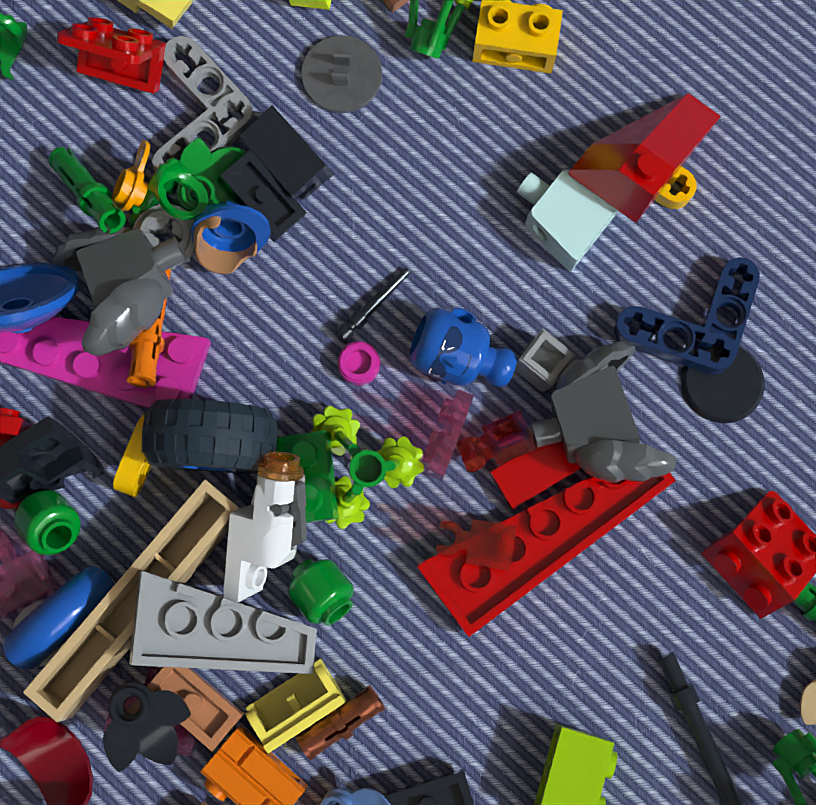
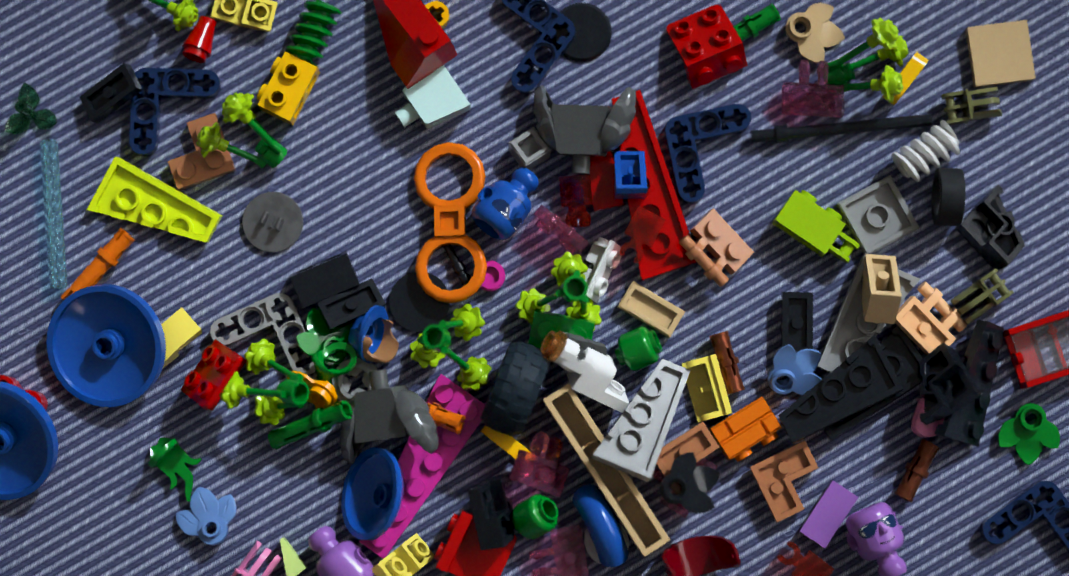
camera: 70 degrees left, 5 degrees up
(108, 508) = (541, 466): none -> clear pink hinge
(111, 141) = (269, 403): none -> lime plant
(235, 312) = (435, 342): none -> lime plant
(296, 284) = (413, 307): none -> black piece
(382, 592) = (651, 309): none -> tan tile
(410, 288) = (450, 222): none -> orange bar
(429, 508) = (605, 257): none -> white hinge
(505, 660) = (721, 242): none -> nougat plate
(554, 501) = (630, 175): none -> blue slope
(600, 40) = (312, 31): none -> green piece
(641, 576) = (695, 134): none -> dark blue beam
(751, 728) = (813, 98): none -> clear pink hinge

